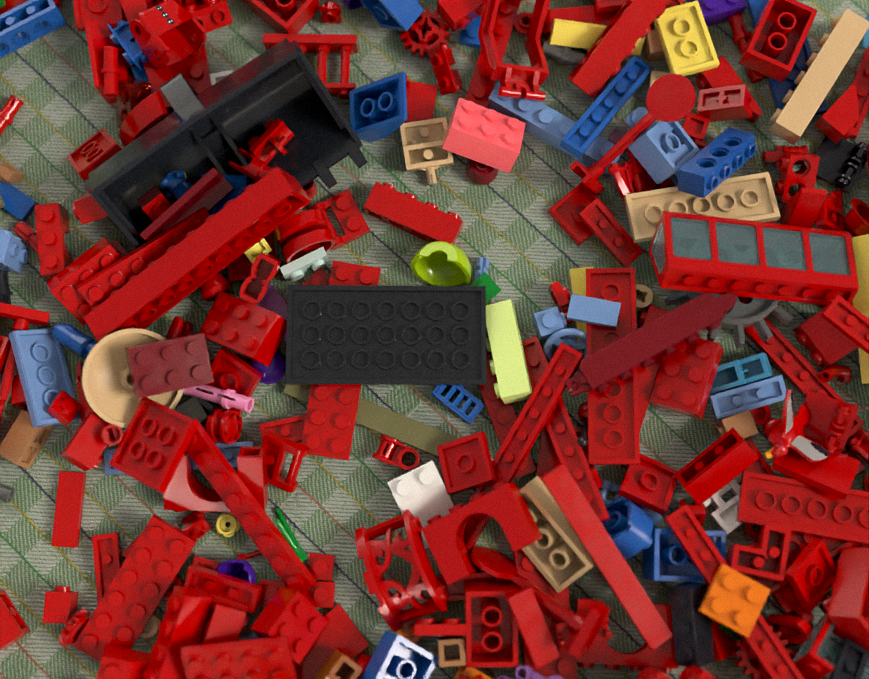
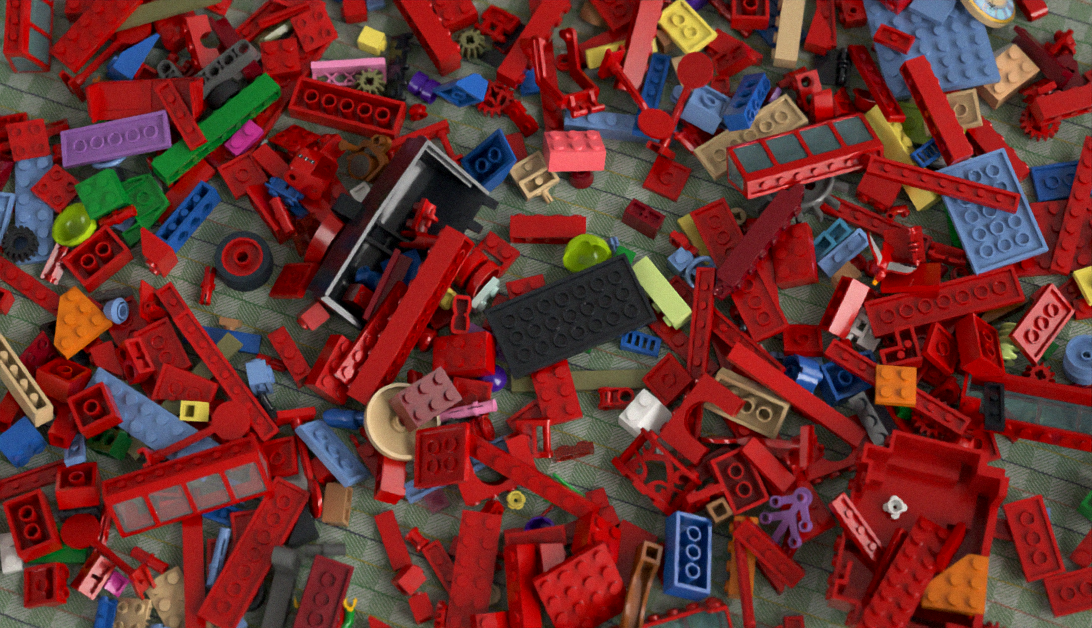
camera: 25 degrees left, 10 degrees down
(54, 106) = (244, 261): none -> wheel
(60, 567) = (408, 579): none -> red brick
(64, 408) = (358, 467): red plate -> none
(94, 522) = (416, 539): none -> red bush
(116, 432) = (406, 465): red hinge -> none
(135, 488) = (436, 501): none -> clear pink plate
(236, 47) = (366, 166): none -> dark orange piece
(309, 493) = (579, 450): none -> clear red plate
(530, 250) = (643, 218): none -> dark red hinge
(589, 140) = (651, 121): none -> red piece
(593, 311) = (709, 238): medium blue tile -> none
(610, 233) = (694, 182): red plate -> none
(750, 166) = (771, 96): none -> medium lavender tile

